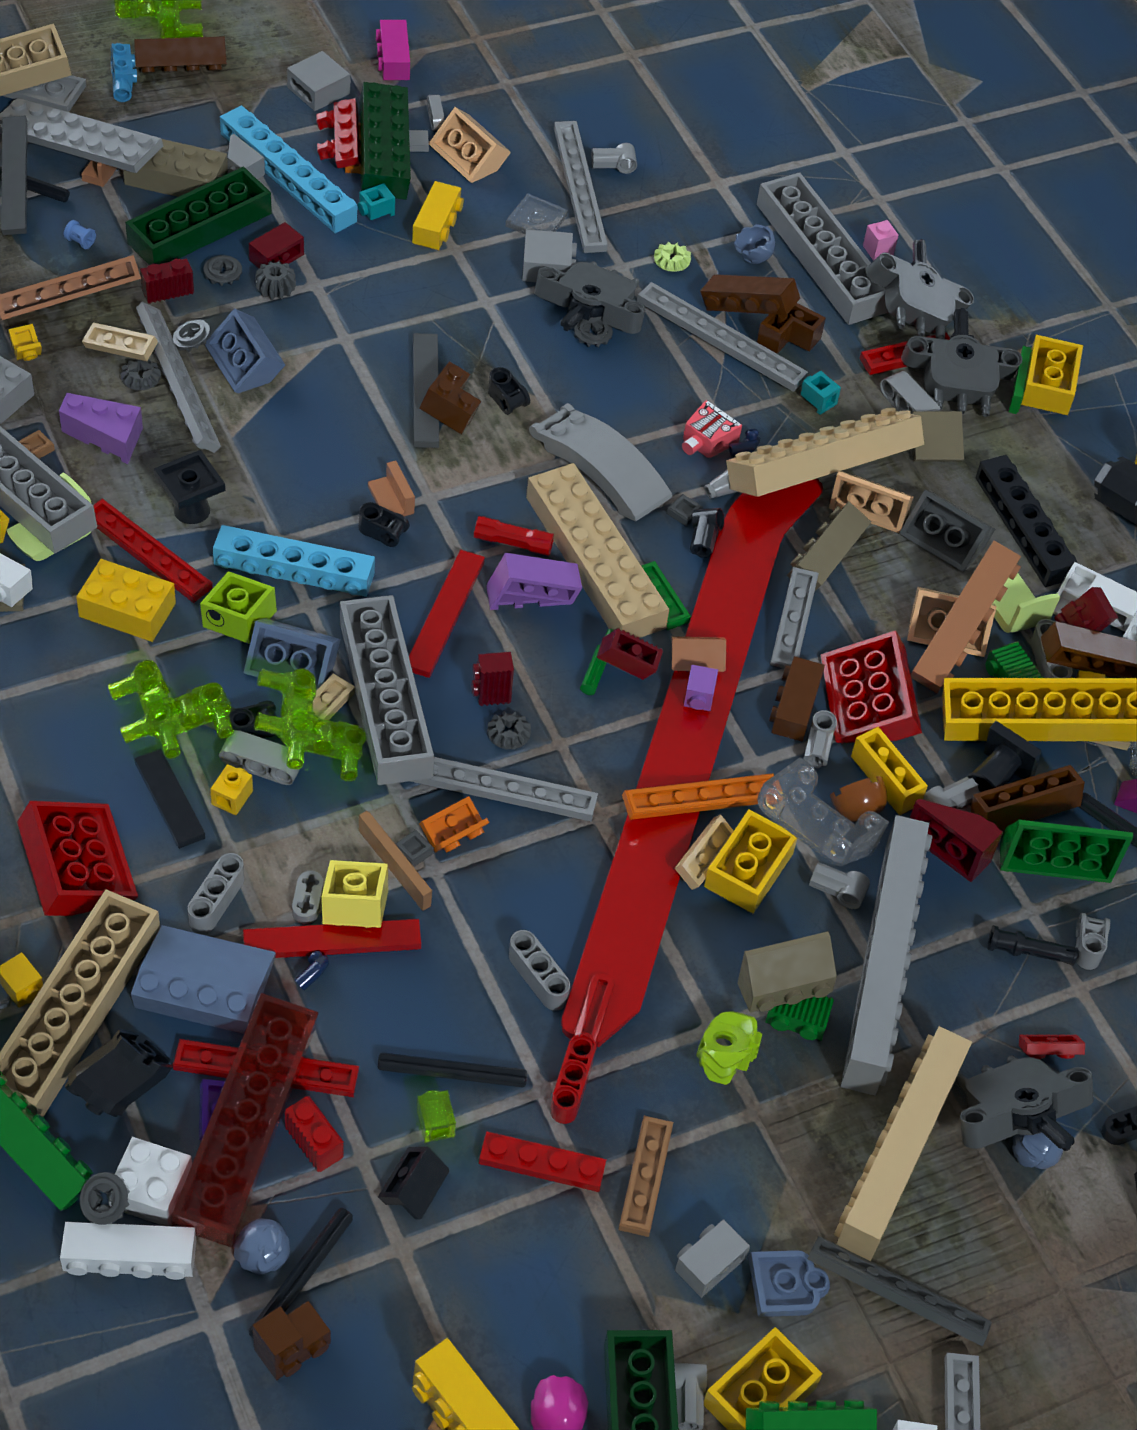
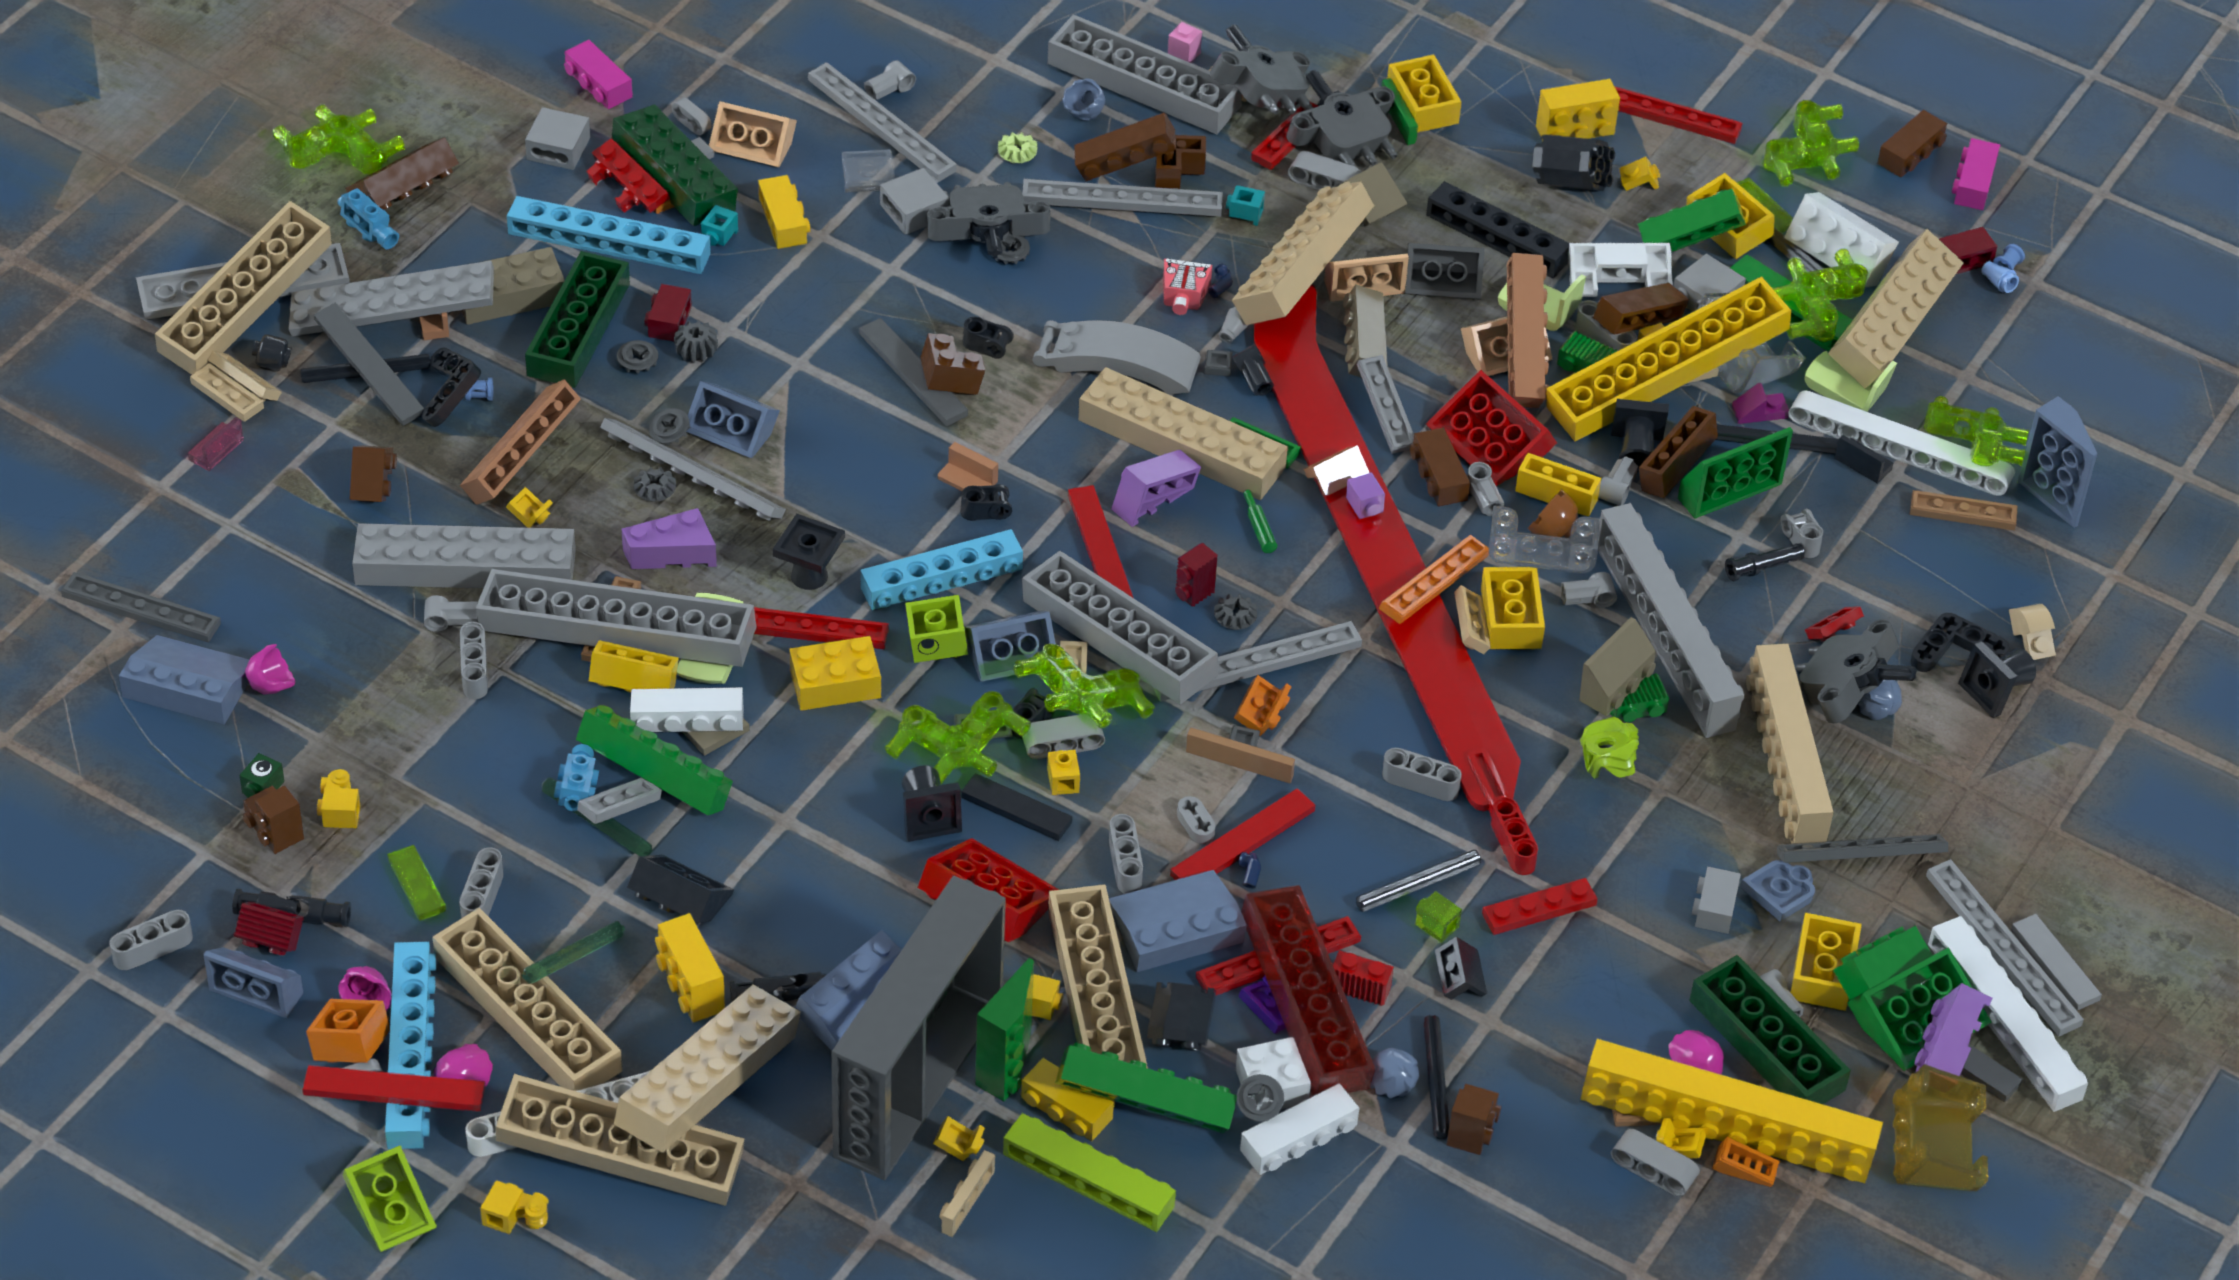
camera: 30 degrees left, 5 degrees down
(71, 211) = (461, 377): none -> black beam
(90, 757) = (929, 806): none -> black plant
(120, 341) = (615, 464): tan plate -> none
(167, 280) = (602, 390): dark red brick -> none
(241, 155) = (564, 244): light grey slope -> none
(355, 894) = (1238, 792): light yellow brick -> none
(529, 539) = (1105, 454): red axle -> none
(630, 653) = (1286, 498): dark red brick -> none
(646, 1176) = (1621, 874): medium nougat tile -> none
(959, 837) = (1658, 501): dark red slope -> none
(1088, 611) = (1613, 277): dark red piece -> none

